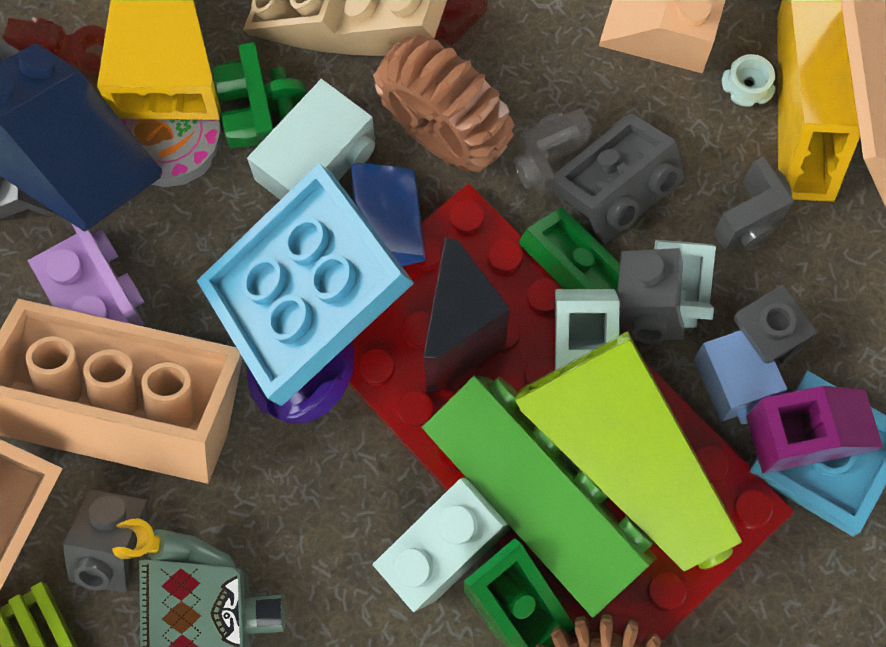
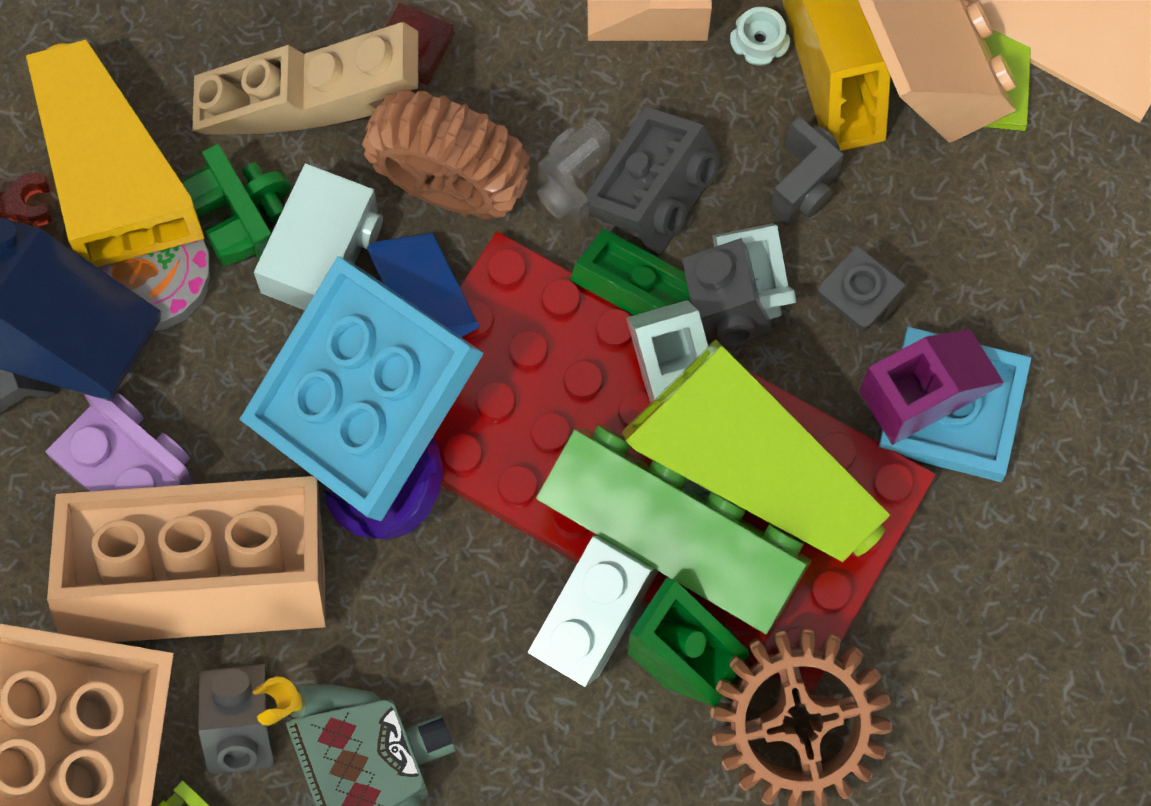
camera: 20 degrees left, 0 degrees up
(465, 319) = (548, 375): black slope -> none
(736, 376) = (836, 353): light blue brick -> none

